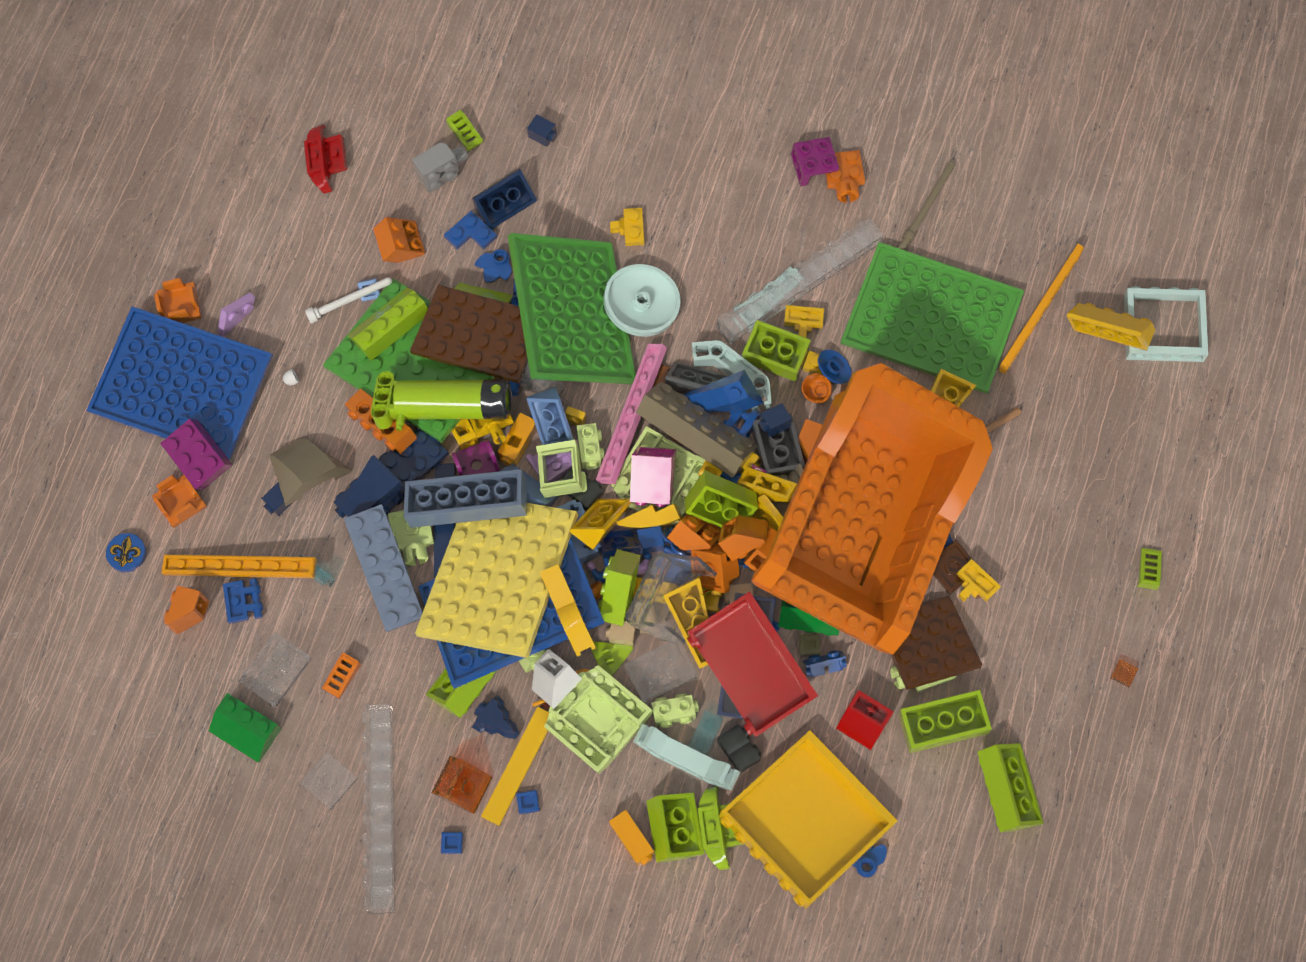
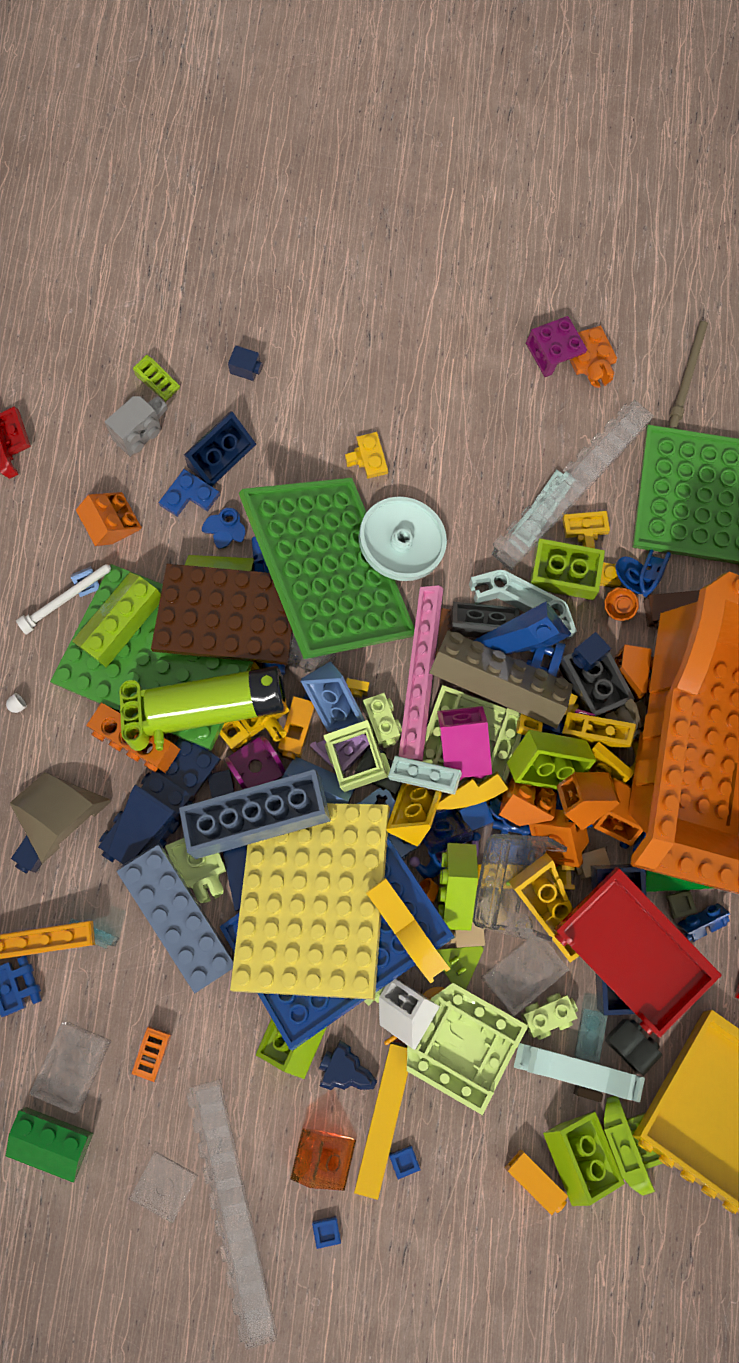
camera: 20 degrees left, 5 degrees up
(612, 494) = (425, 775): none -> light aqua tile
(691, 778) = (588, 1093): none -> dark brown tile
(857, 362) = (651, 576): none -> blue piece

